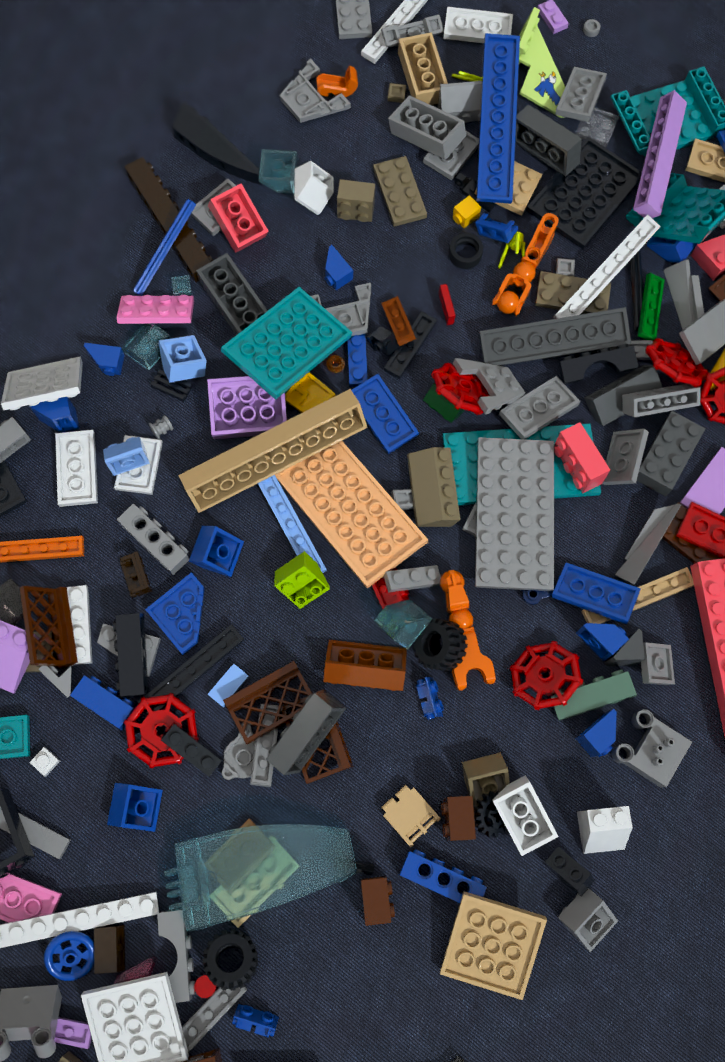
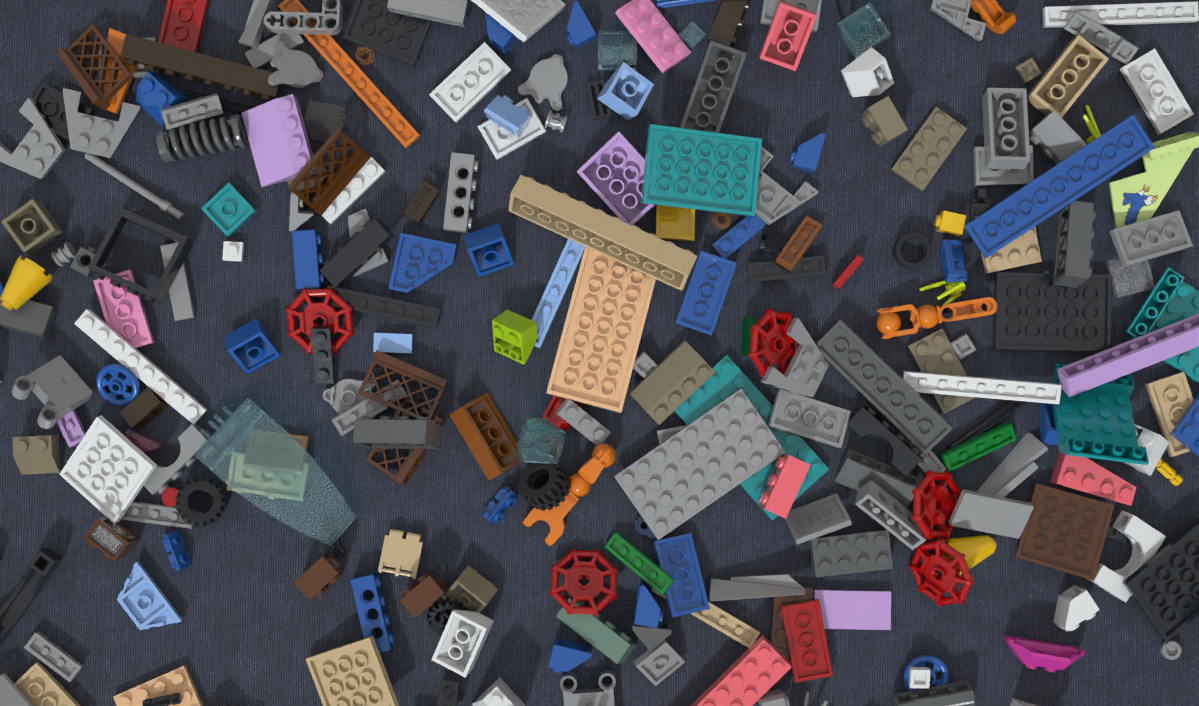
camera: 60 degrees right, 15 degrees up
(124, 413) = (546, 81): none -> light grey tile
(562, 618) = (639, 563): none -> green tile

